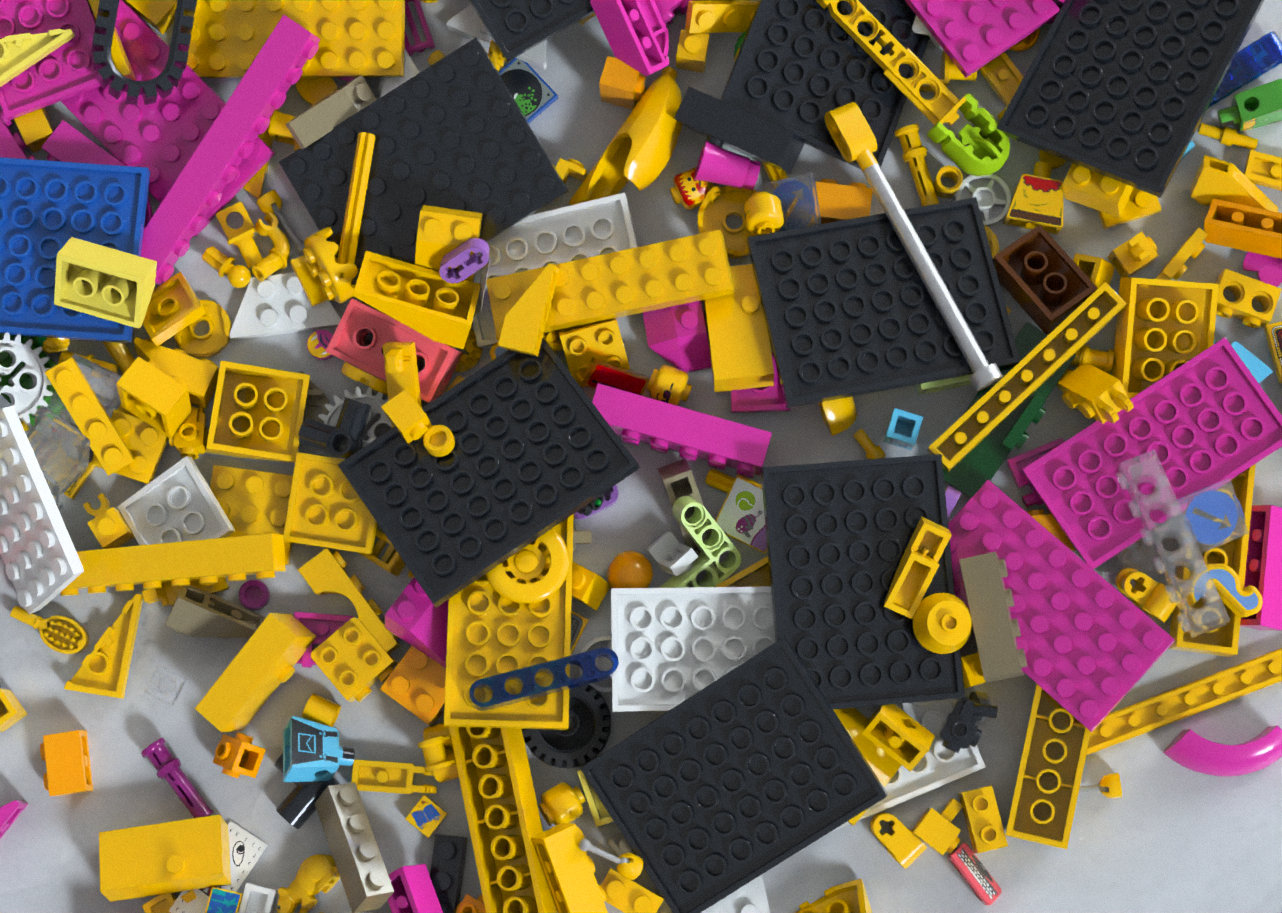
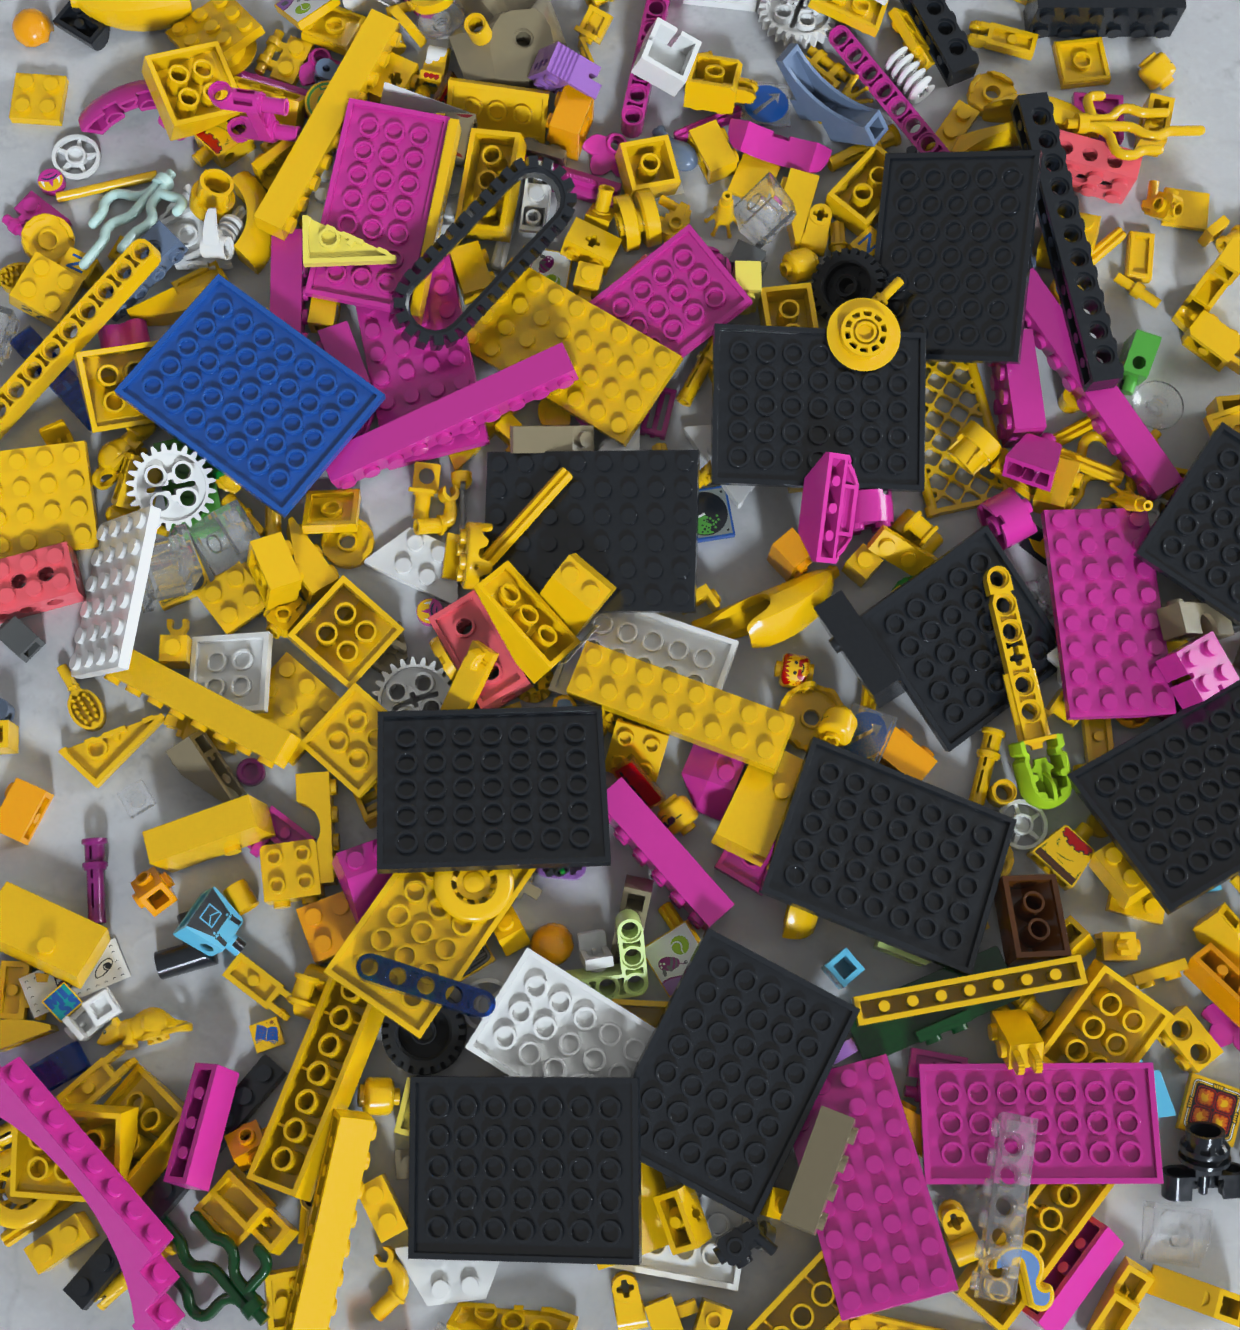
camera: 20 degrees right, 5 degrees down
(89, 415) = (215, 553): yellow plate -> none
(104, 282) = (293, 459): light yellow slope -> none
(238, 275) = (401, 518): yellow axle -> none
(262, 886) = (102, 1007): none -> white tile
(329, 438) = (386, 687): black piece -> none
(354, 847) = (191, 1023): dark tan brick -> none
(407, 416) = (455, 708): yellow brick -> none
(439, 440) = (467, 743): yellow tile -> none
(461, 257) = (578, 610): medium lavender beam -> none
(527, 318) = (598, 691): yellow slope -> none
(628, 864) = (397, 1180): hinge -> none
(726, 167) = (831, 672): dark pink plant -> none
(858, 143) = (948, 717): flat silver piece -> none
(869, 447) = (807, 971): yellow bar -> none
(917, 567) = (783, 1090): yellow slope -> none
(942, 623) = (775, 1149): yellow cone -> none
(1214, 515) = (1054, 1205): clear piece -> none

